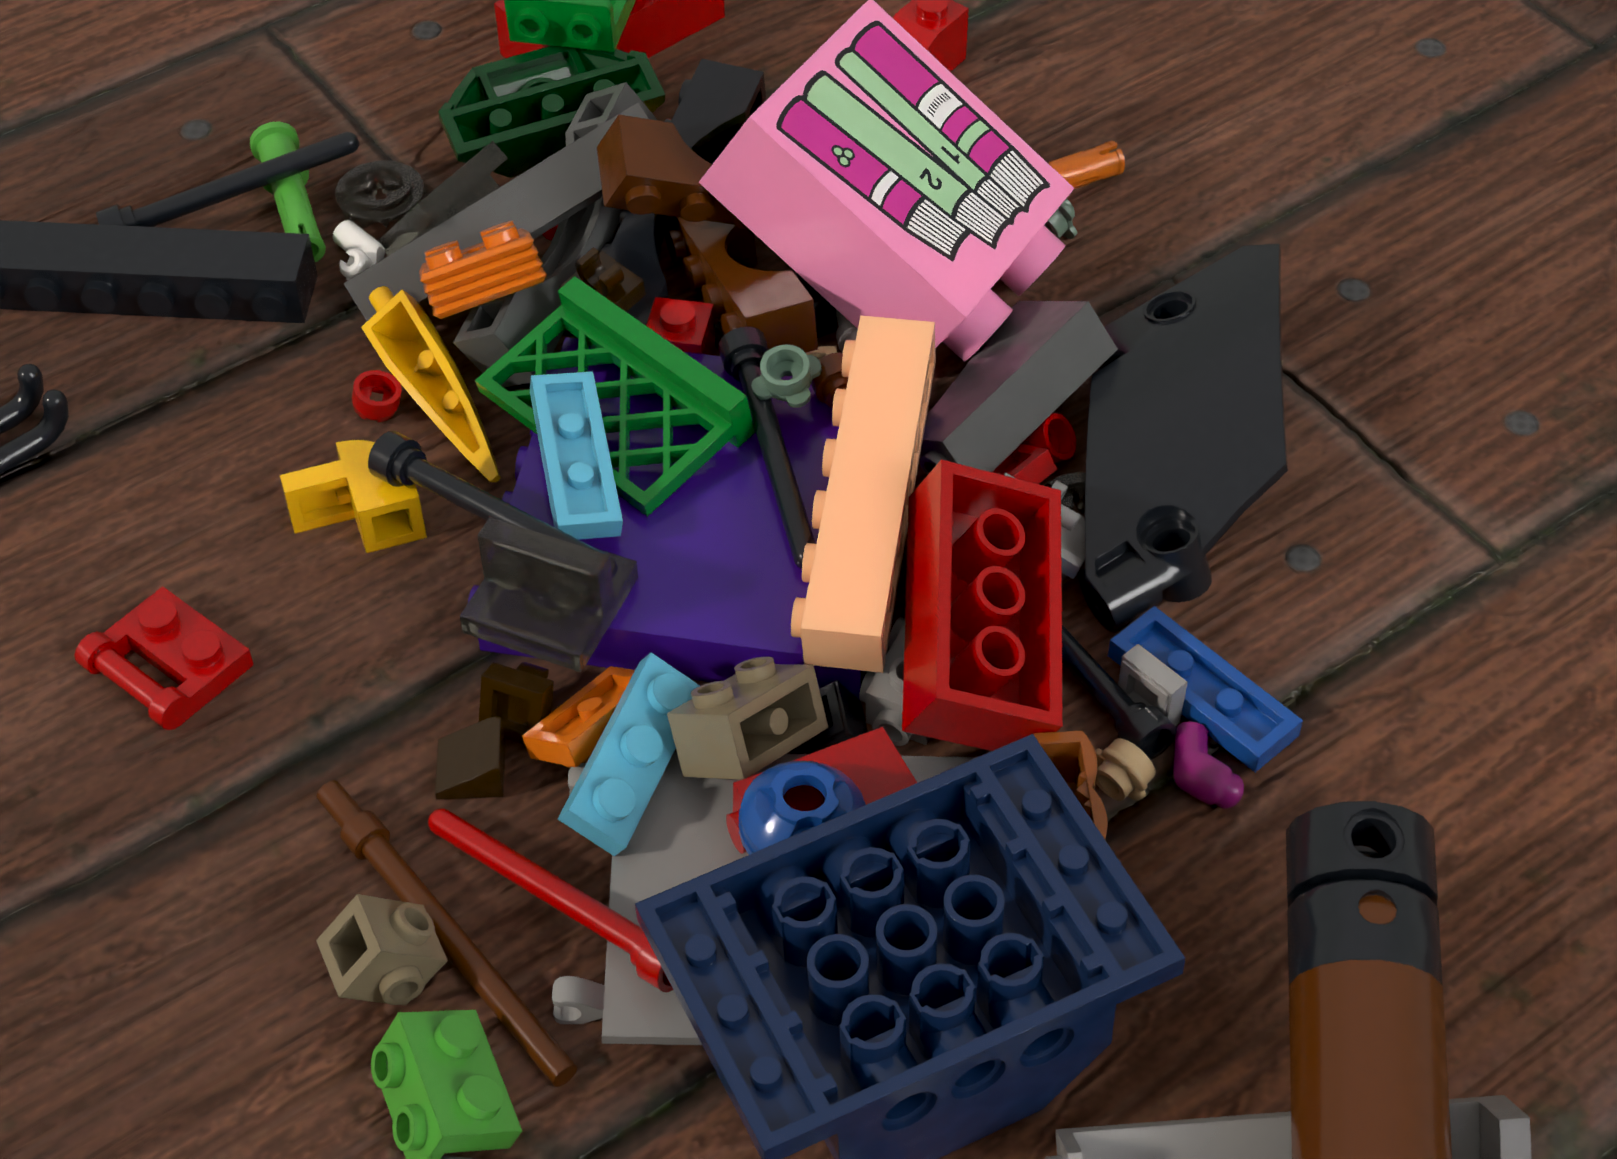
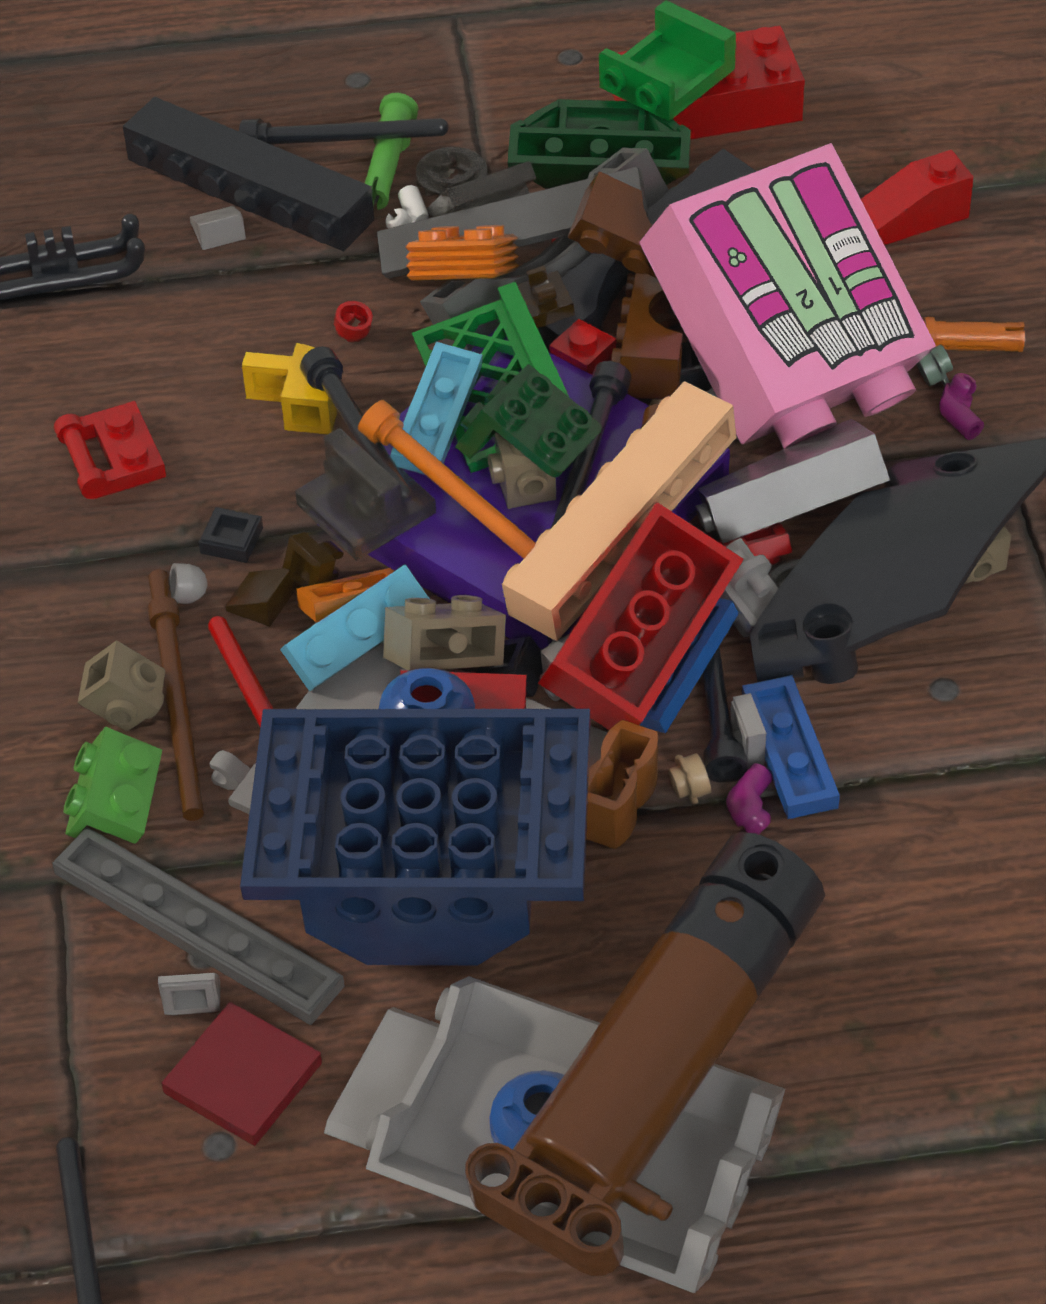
camera: 30 degrees right, 0 degrees up
(135, 345) = (218, 227): none -> light grey slope
(372, 784) = (187, 583): none -> light grey hinge
(384, 703) = (231, 534): none -> black tile
(427, 371) = (396, 316): yellow piece -> none
(540, 496) = (383, 425): none -> orange piece
(713, 417) = (533, 419): none -> dark green bracket
(721, 481) = (518, 476): none -> dark tan brick
(786, 361) = (620, 397): sand green plate -> none
(1056, 436) = (806, 538): red hinge -> none
(1101, 254) = (956, 405): none -> magenta arm

